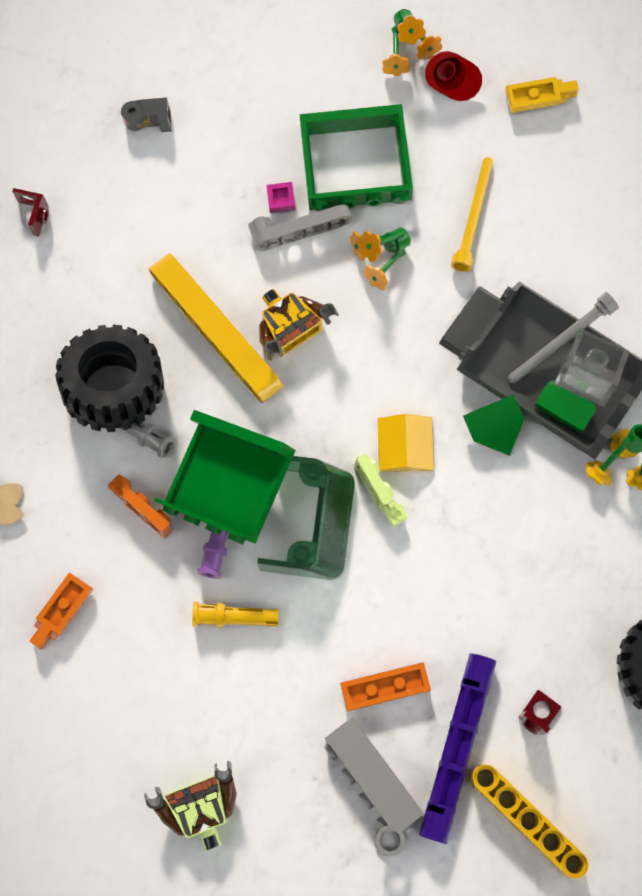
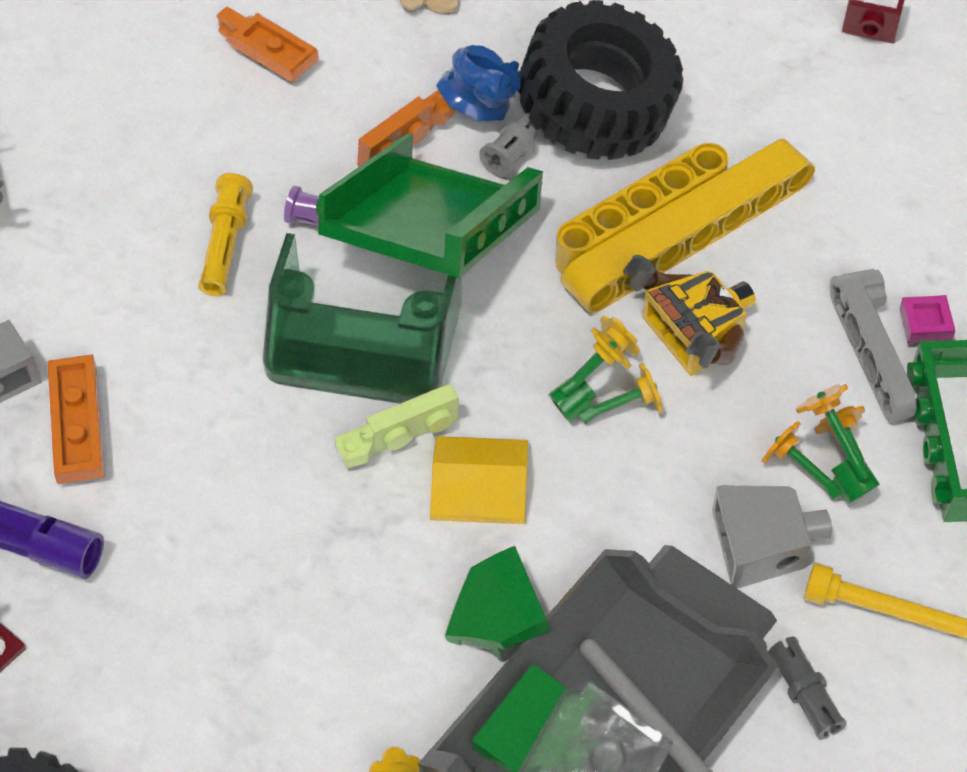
camera: 90 degrees right, 20 degrees down
(107, 456) = (480, 83): none -> blue piece
(199, 344) = (638, 201): none -> yellow beam
(351, 389) = (575, 394): none -> plant
(435, 287) = (765, 531): none -> light grey torso
(523, 270) = (807, 688): none -> dark grey pin

